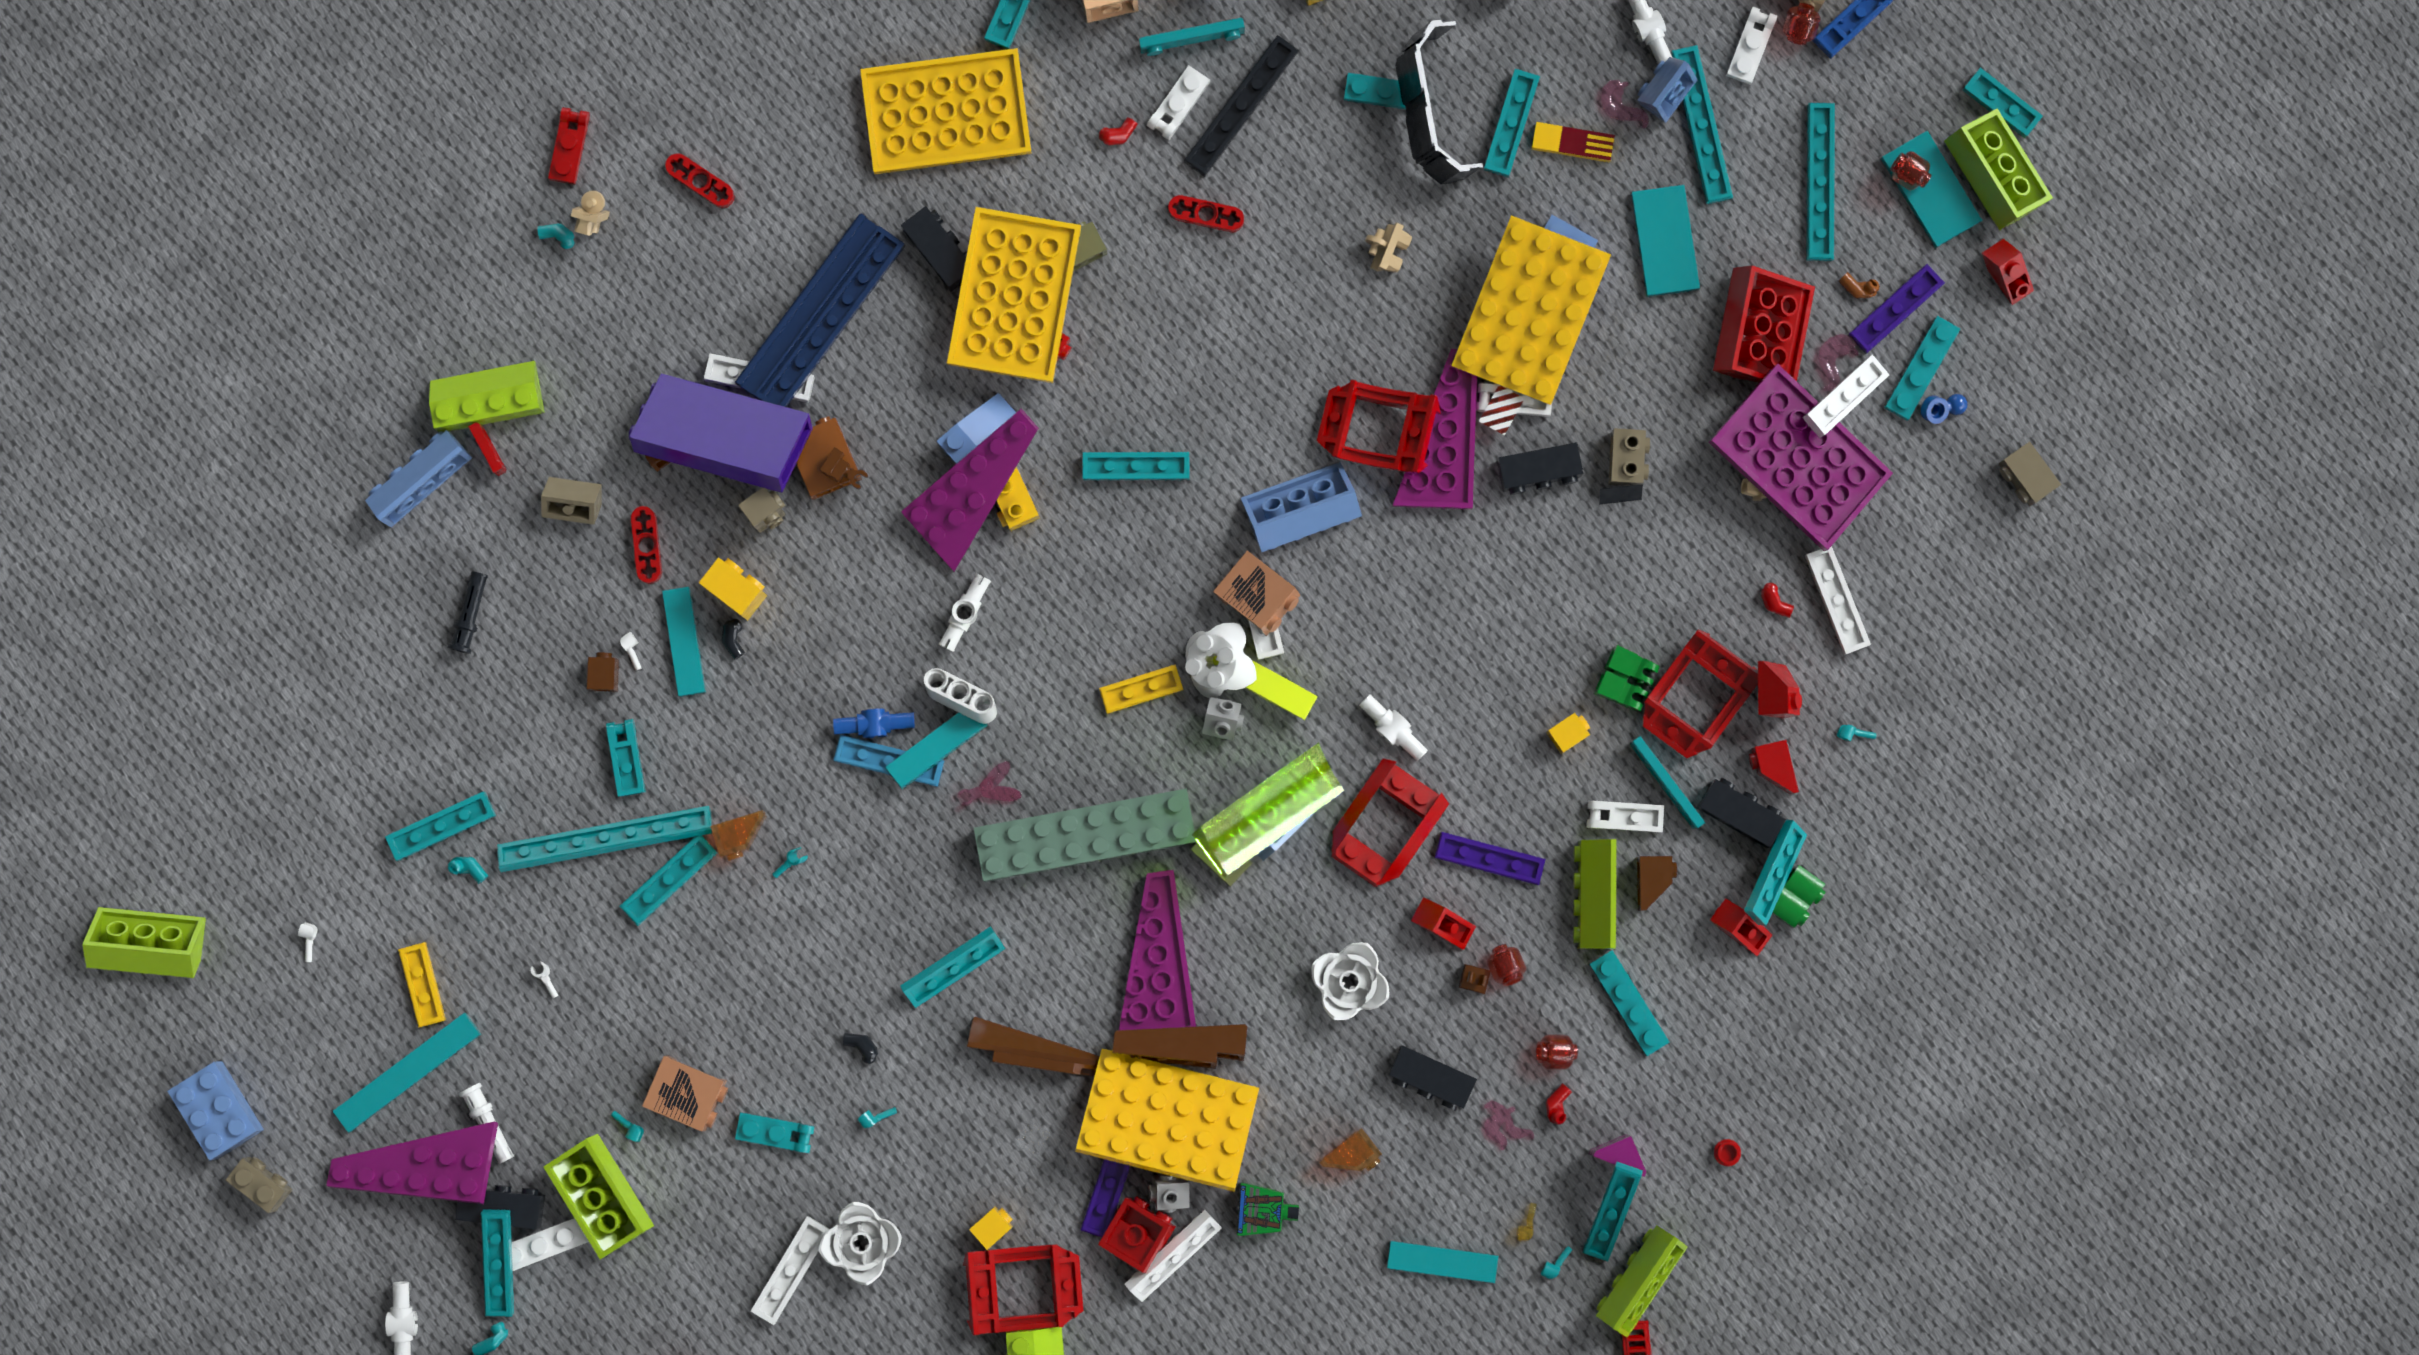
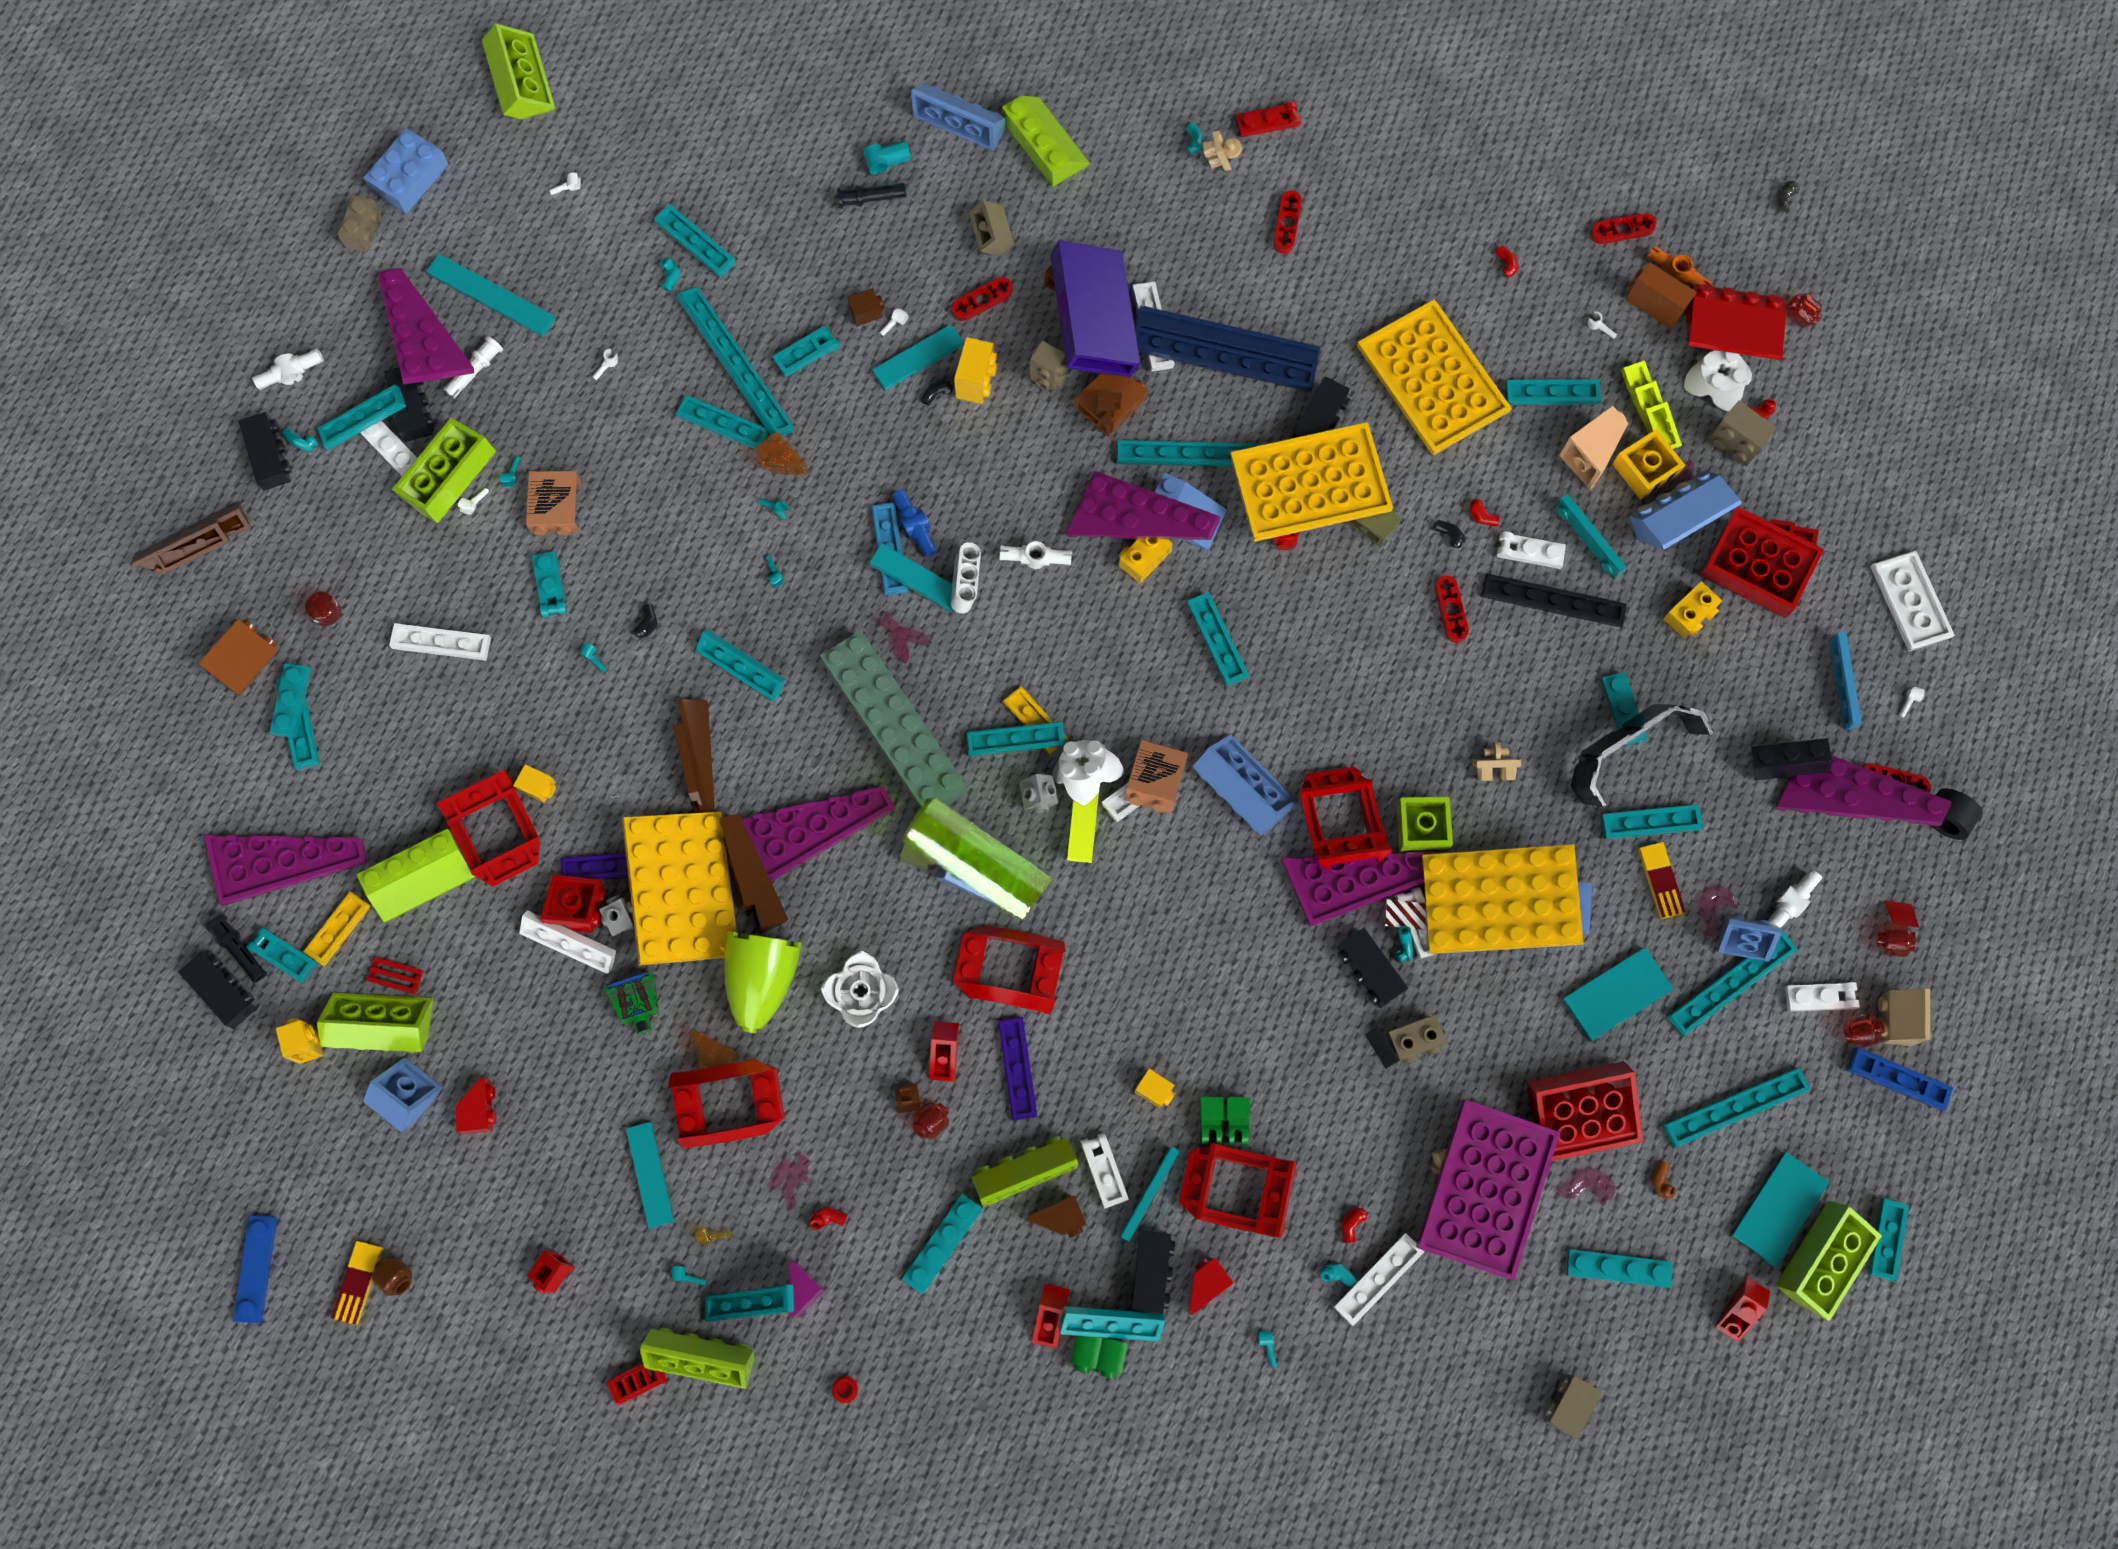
camera: 65 degrees right, 10 degrees down
(422, 984) = (564, 278): yellow tile -> none
(430, 582) = (881, 157): none -> teal piece
(488, 449) = (1004, 155): red tile -> none
(647, 1187) = (468, 506): none -> white hand
(839, 1243) = (472, 671): white brick -> none
(871, 892) = (776, 577): none -> teal hand
(915, 410) = (1177, 453): none -> teal tile
(1123, 172) = (1451, 530): none -> black arm
(1154, 717) = (1015, 739): none -> teal tile
(1292, 1076) = (757, 977): none -> lime cylinder
(1393, 727) = (1093, 938): white pin -> none
(1395, 1196) = (690, 1109): none -> red wedge
(1420, 349) = (1424, 824): none -> lime brick
(1432, 1078) = (805, 1097): black brick -> none
(1526, 421) = (1406, 945): none -> teal arm
(1556, 1052) = (872, 1196): clear red head -> none
(1777, 691) = (1272, 1254): red slope -> none
(1814, 636) = (1335, 1272): none -> teal arm
(1845, 396) = (1561, 1206): white plate -> none
(1896, 308) = (1660, 1222): dark purple tile -> none
(1910, 170) = (1787, 1180): clear red head -> none
(1955, 404) = (1601, 1312): blue plate -> none

